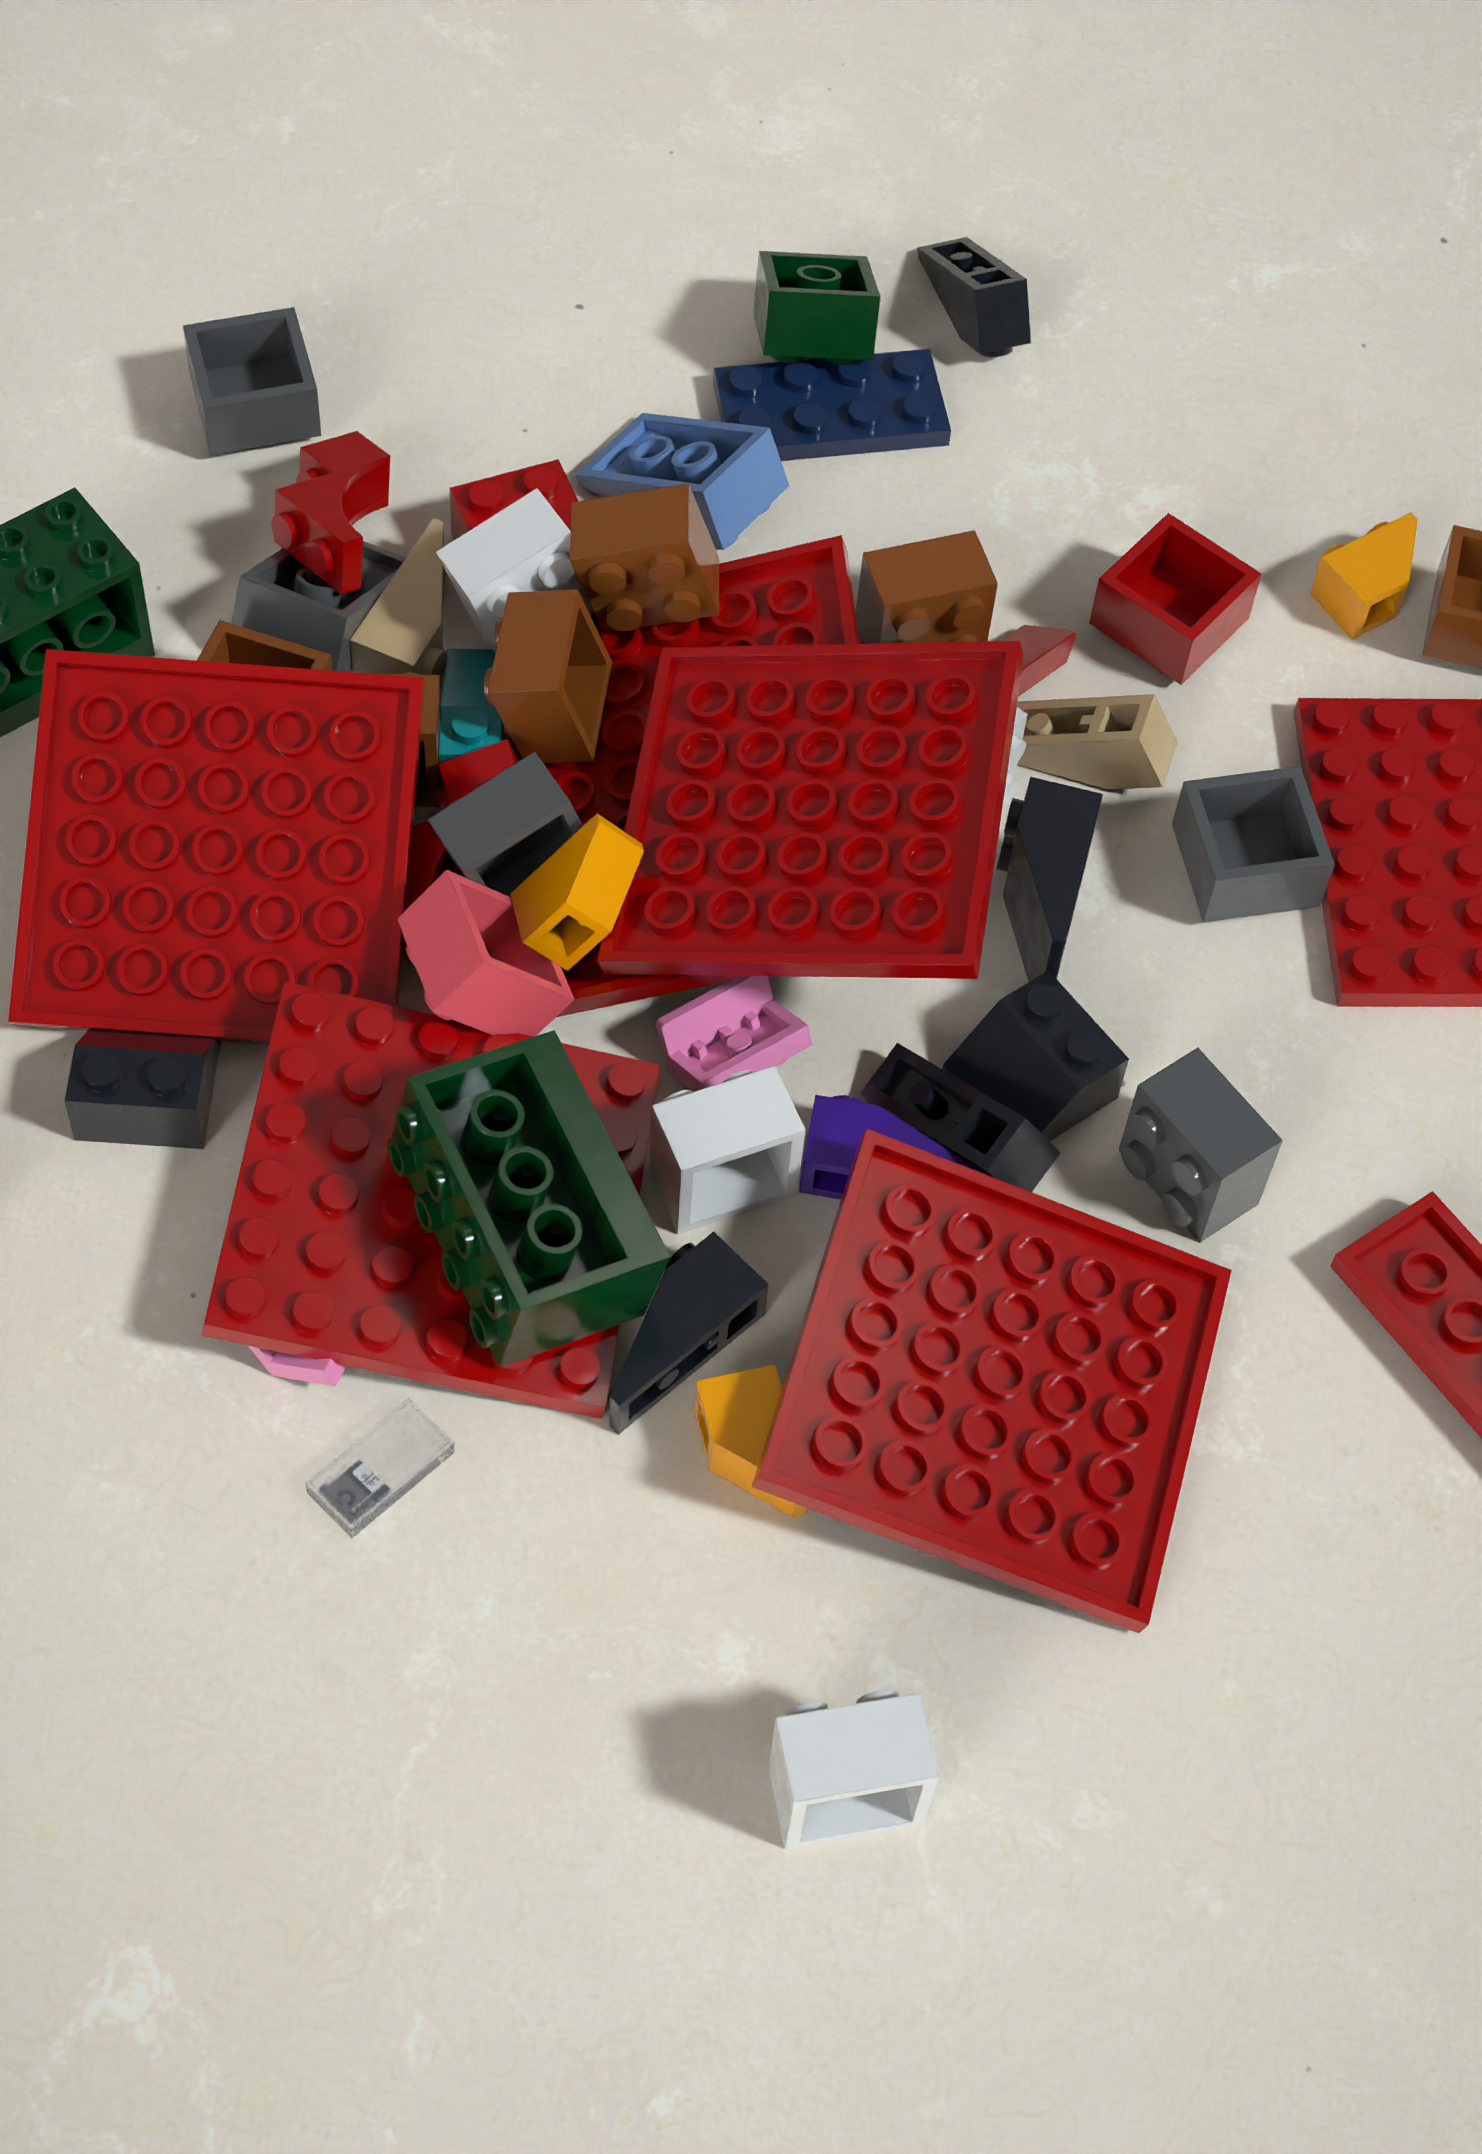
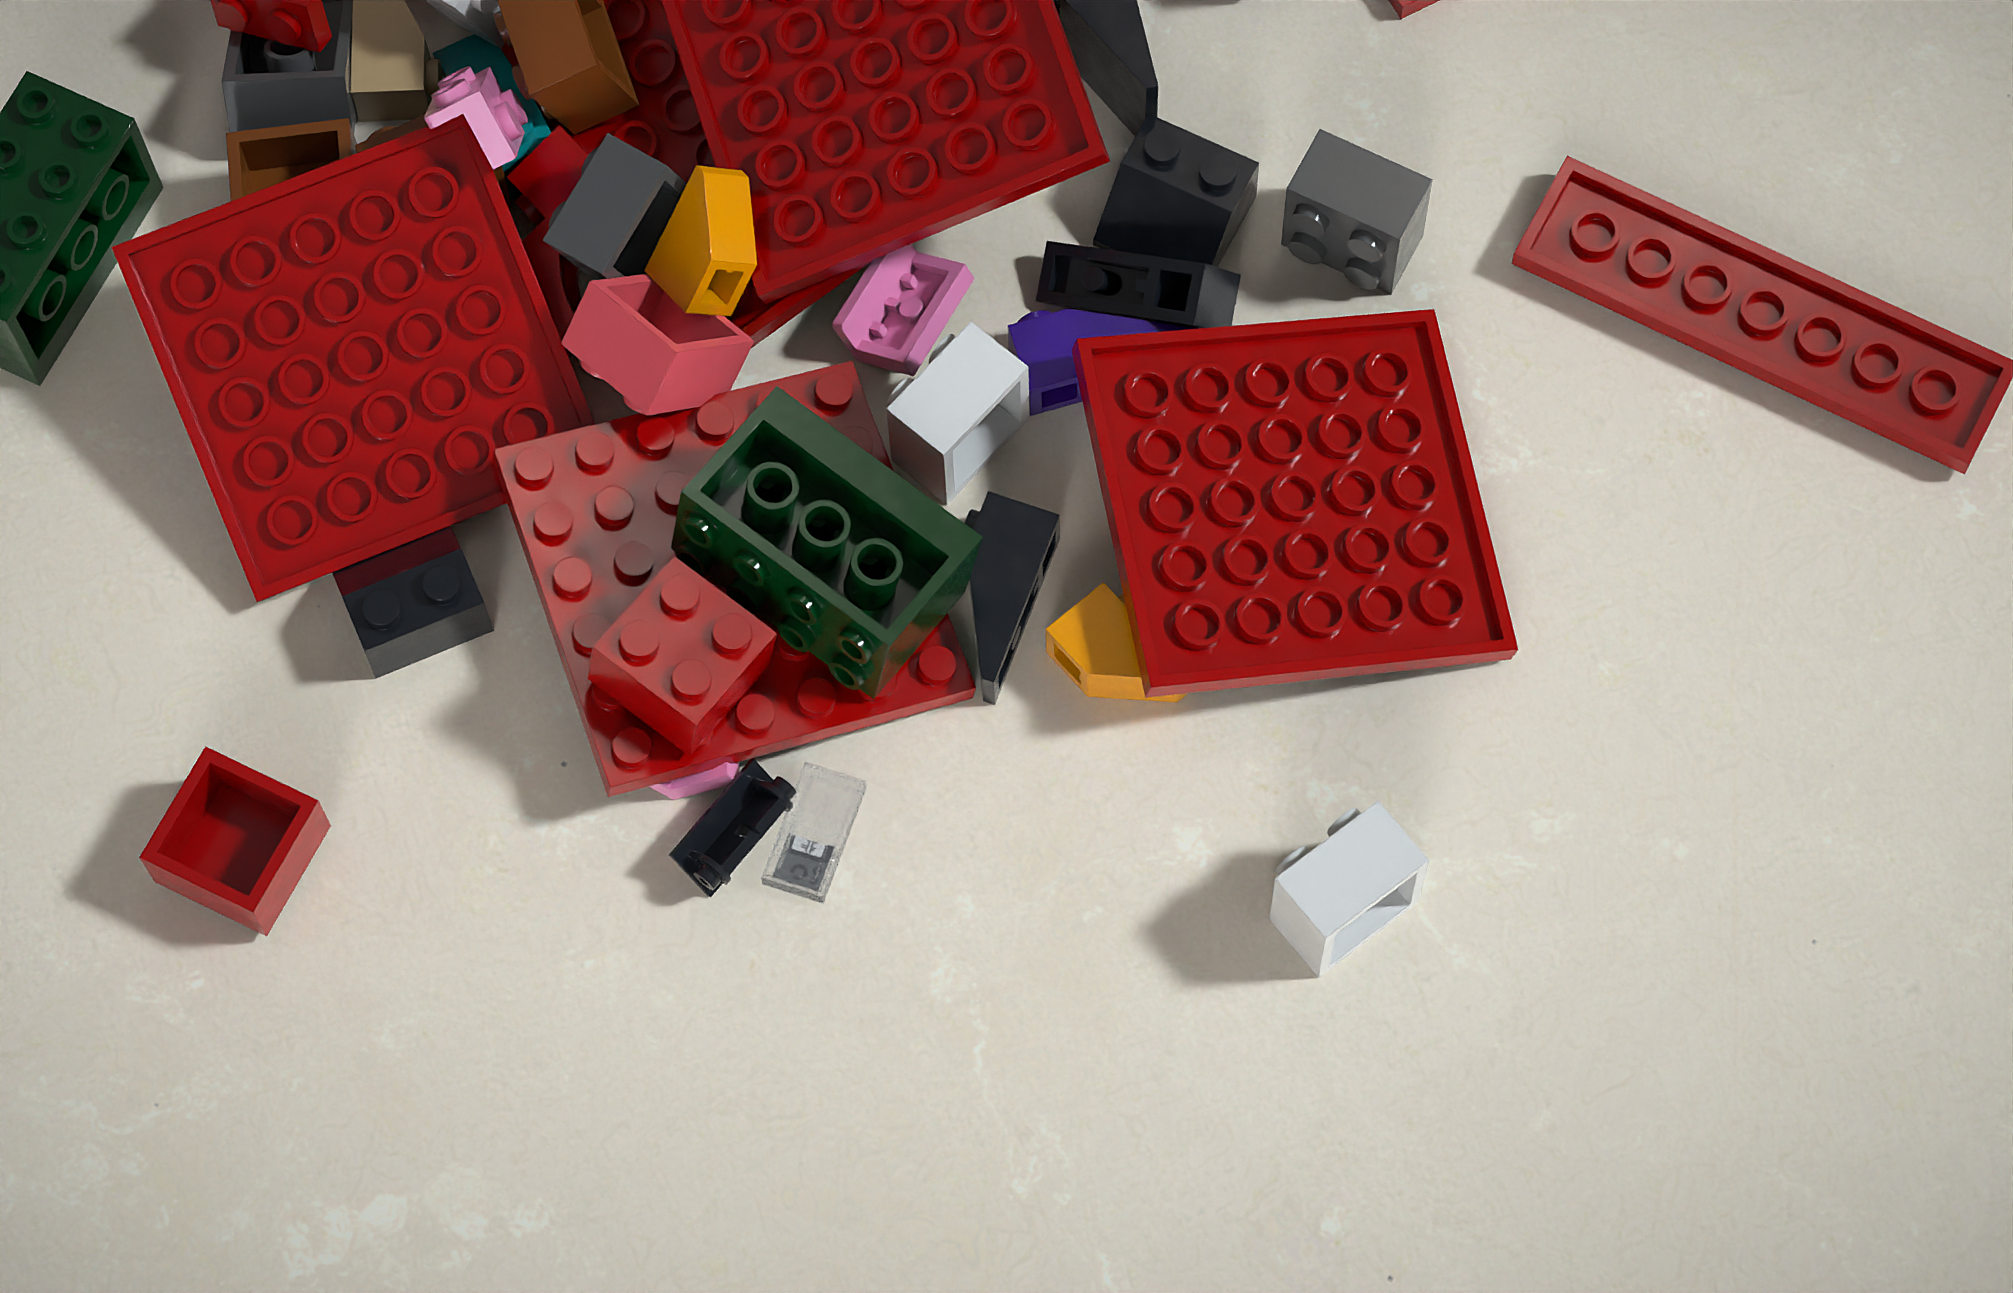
camera: 20 degrees left, 10 degrees up
(304, 1423) = (732, 826): none -> black hinge
(334, 1234) = (681, 655): none -> red piece
(440, 688) = (491, 113): none -> bright pink bracket

